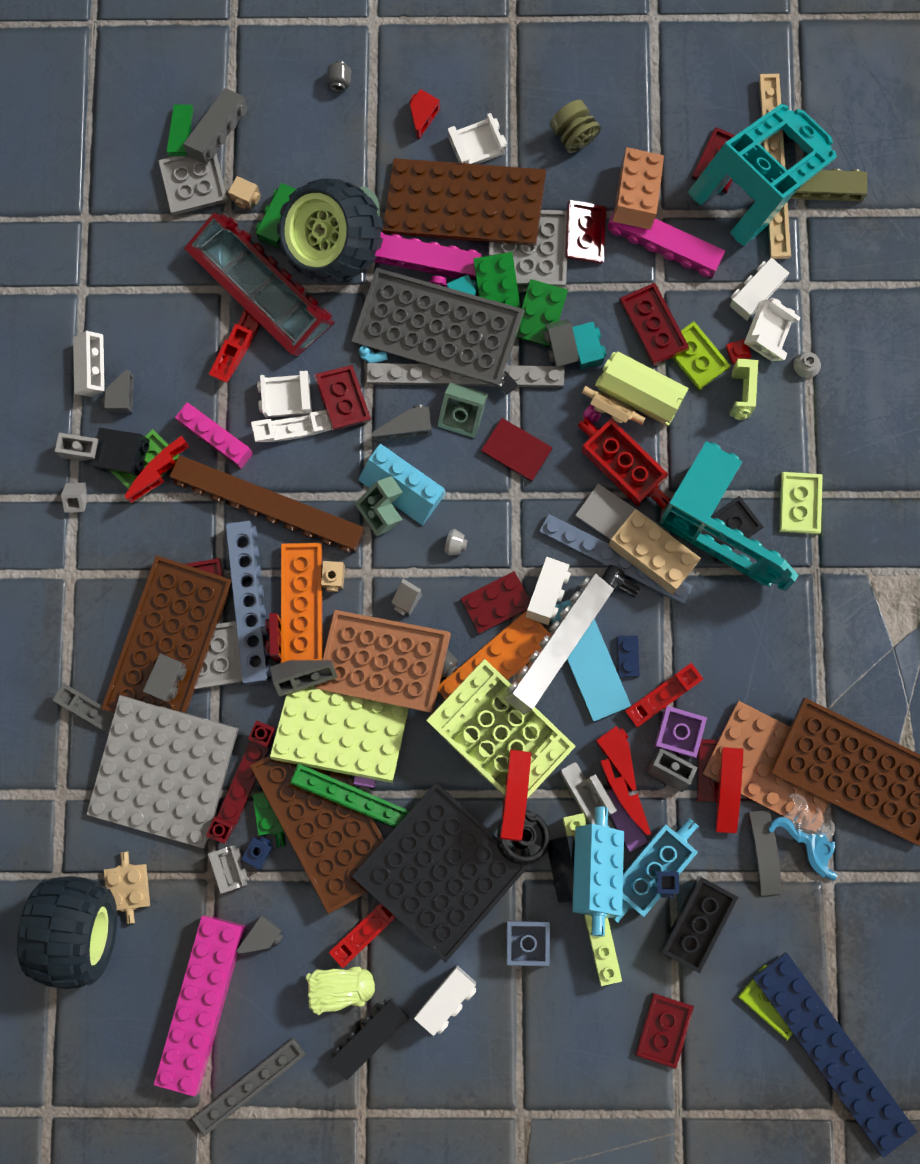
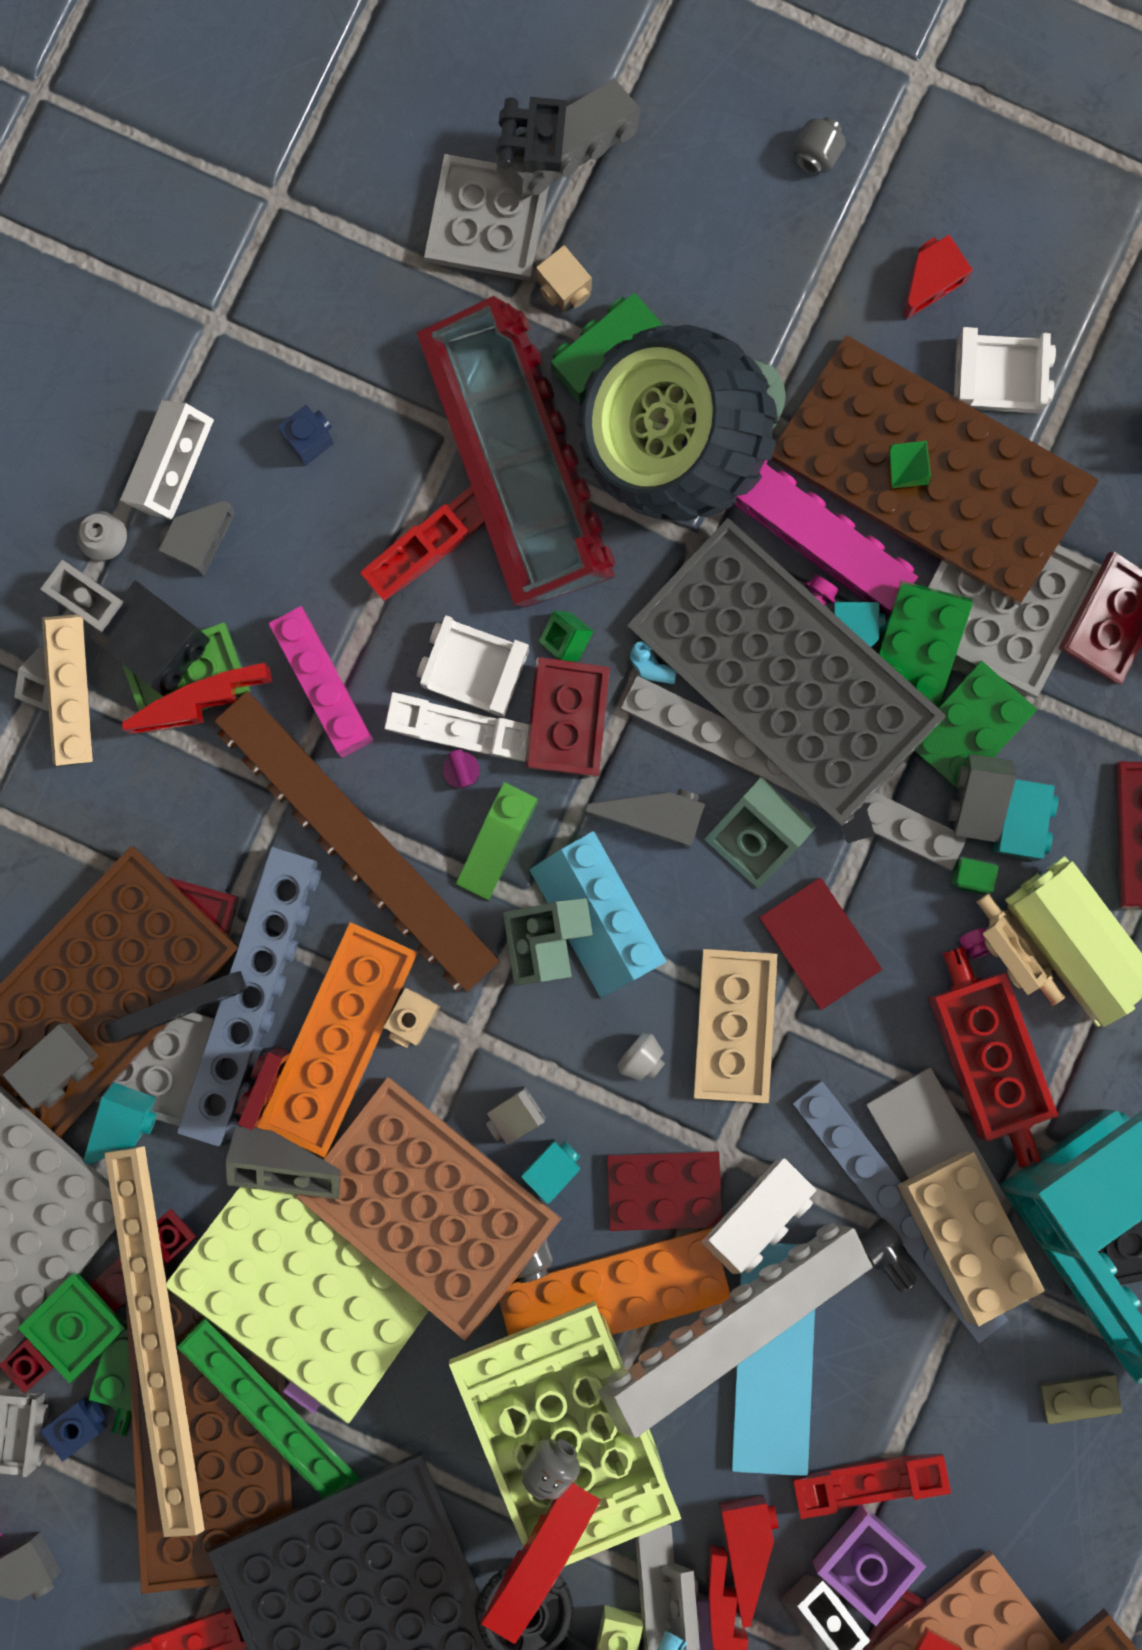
camera: 20 degrees right, 5 degrees up
(72, 416) = (101, 535): none -> light grey cone
(89, 494) = (67, 689): none -> tan plate
(152, 321) = (307, 433): none -> dark blue brick
(179, 129) = (518, 85): green tile -> none
(203, 128) = (544, 134): none -> black plate
(212, 690) = (120, 1121): none -> teal slope
(214, 620) = (176, 1007): none -> black beam
(234, 801) = (72, 1327): none -> green plate
(278, 785) = (154, 1342): none -> tan plate
(302, 447) = (461, 769): none -> magenta plate
(323, 360) = (565, 636): none -> green slope
(335, 471) = (497, 840): none -> bright green slope
(436, 615) = (552, 1170): none -> teal slope
(451, 202) = (909, 464): none -> green slope
(493, 507) = (735, 1026): none -> tan plate
(499, 746) = (550, 1469): none -> dark grey head
(575, 382) = (974, 876): none -> green slope
(628, 656) = (842, 1387): dark blue plate -> none
(746, 607) = (1080, 1398): none -> olive plate

